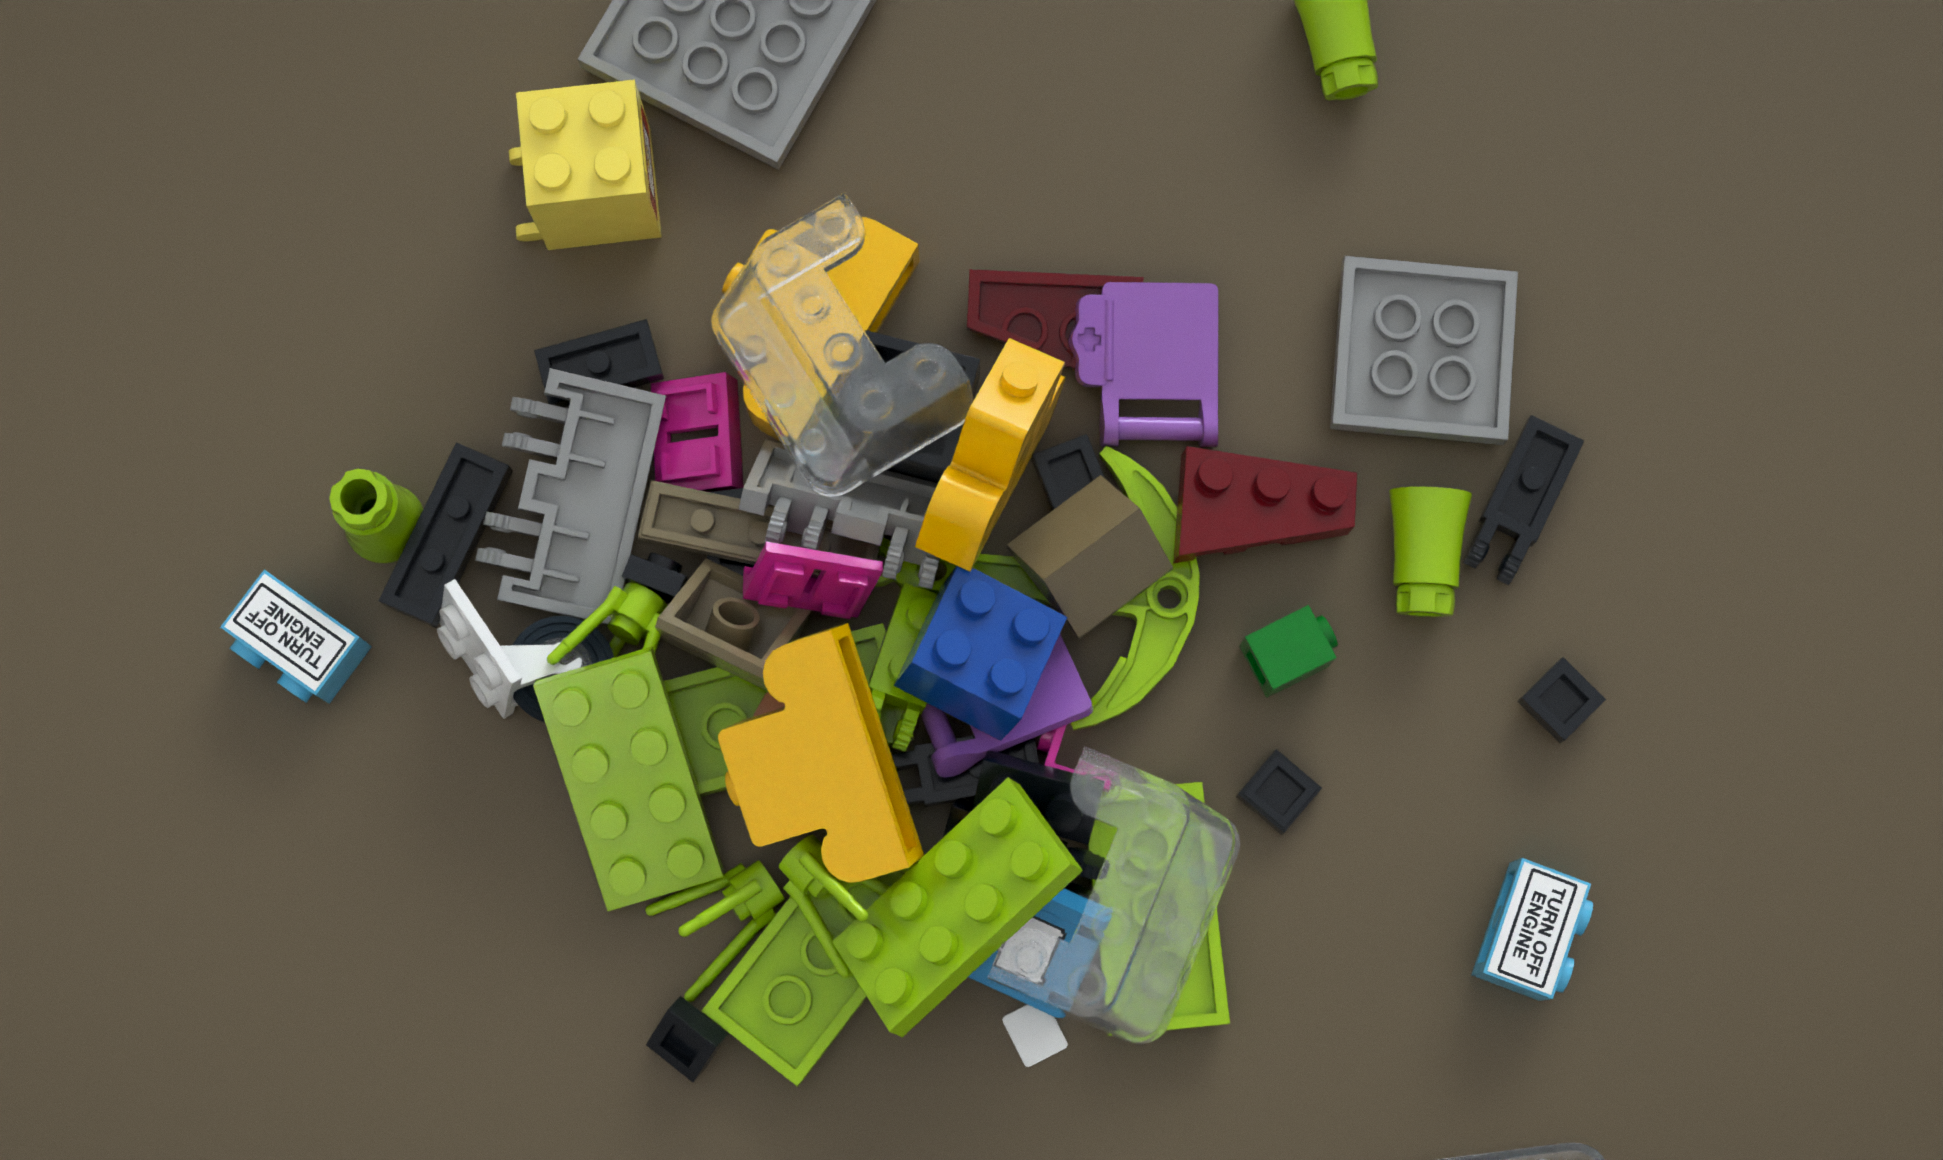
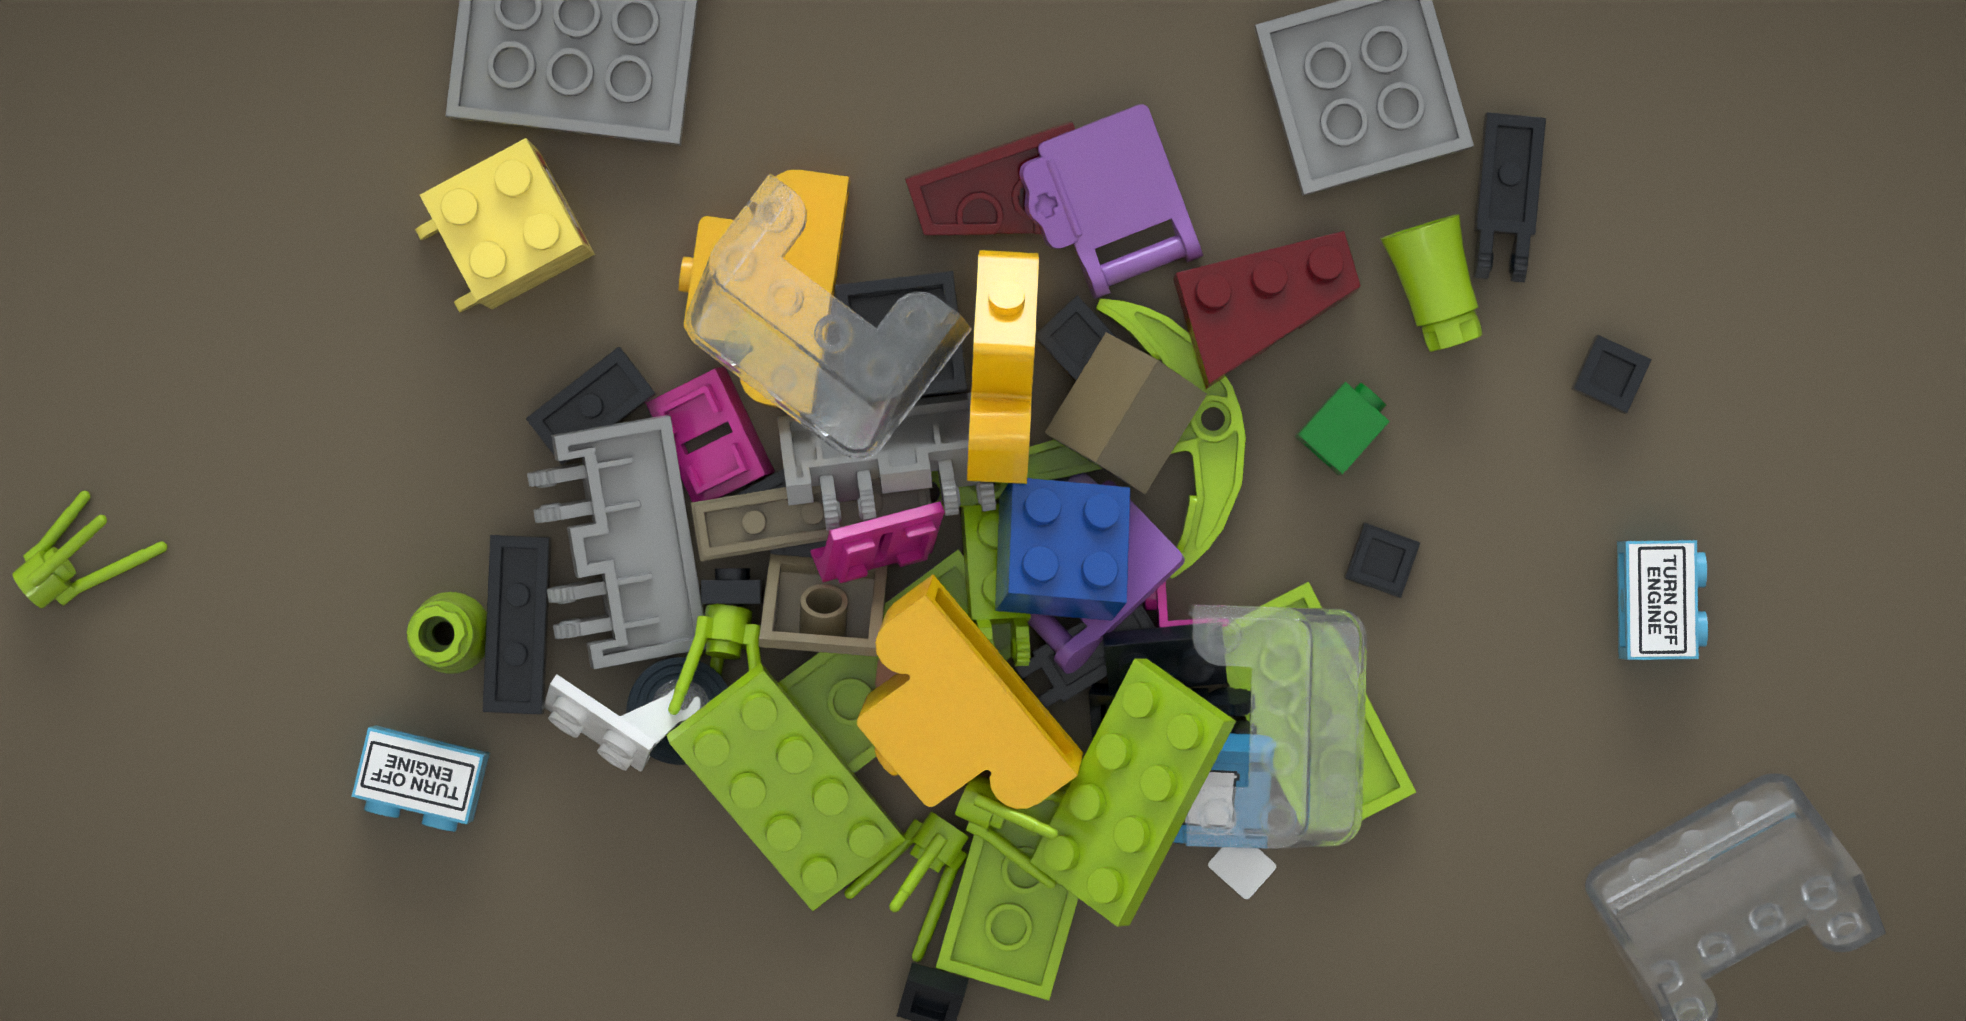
camera: 20 degrees left, 10 degrees up
(44, 322) = (48, 570): none -> lime plant

